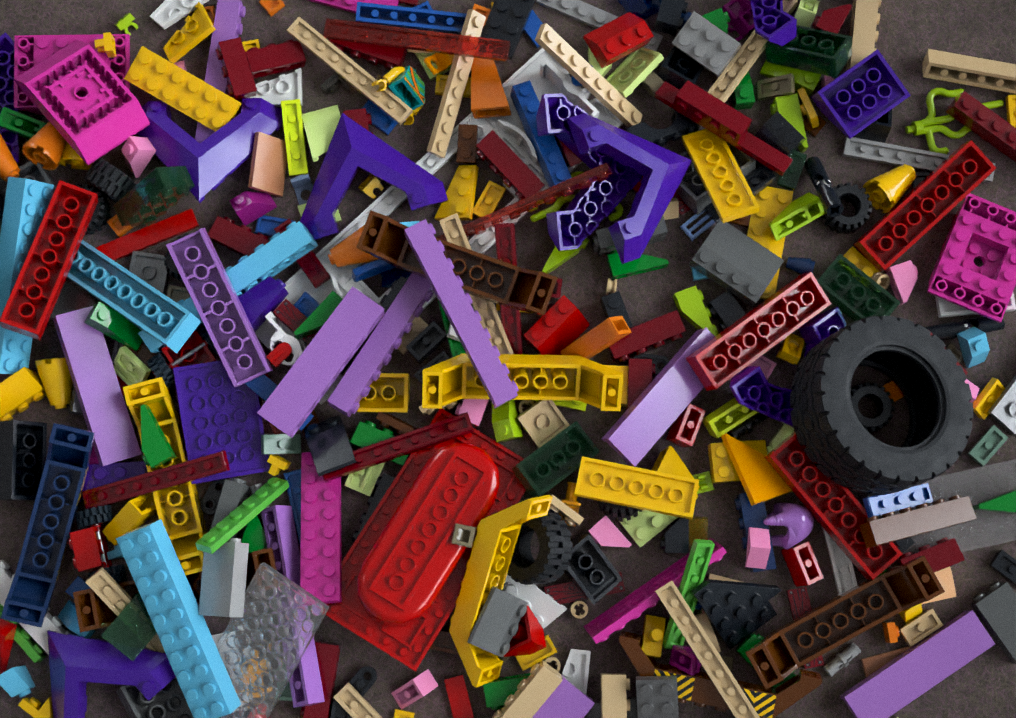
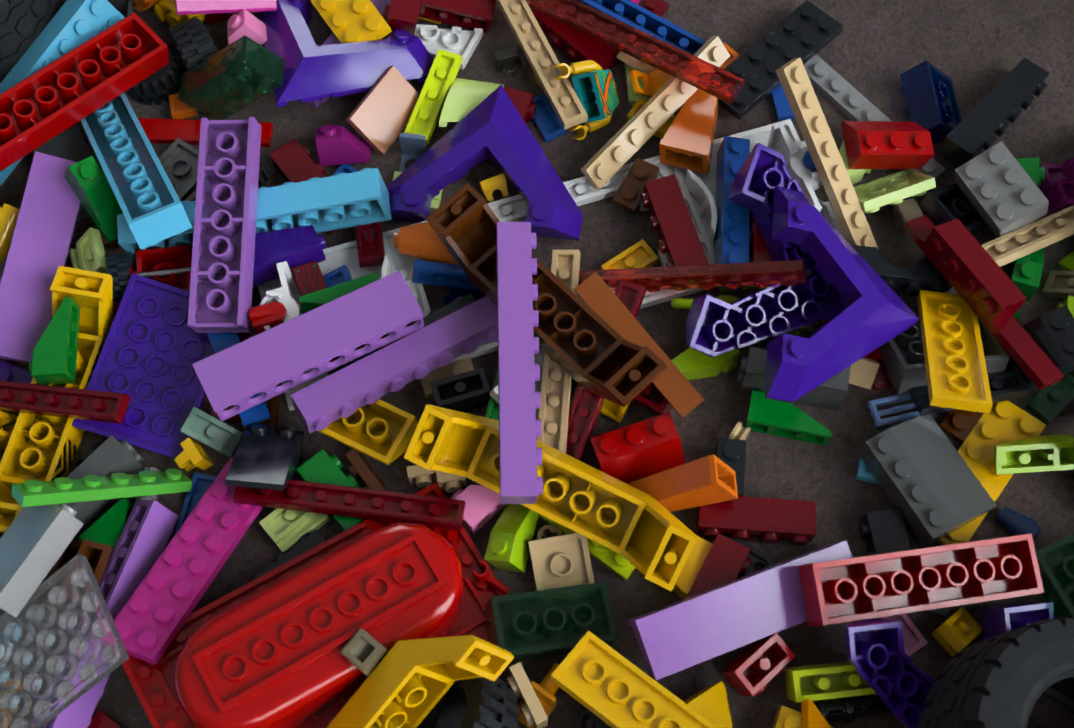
camera: 30 degrees right, 15 degrees down
(460, 194) = (602, 239): yellow wing -> none
(504, 451) = (487, 577): none -> red hand
(515, 256) = (671, 381): none -> dark orange tile
(693, 310) = (837, 511): lime slope -> none

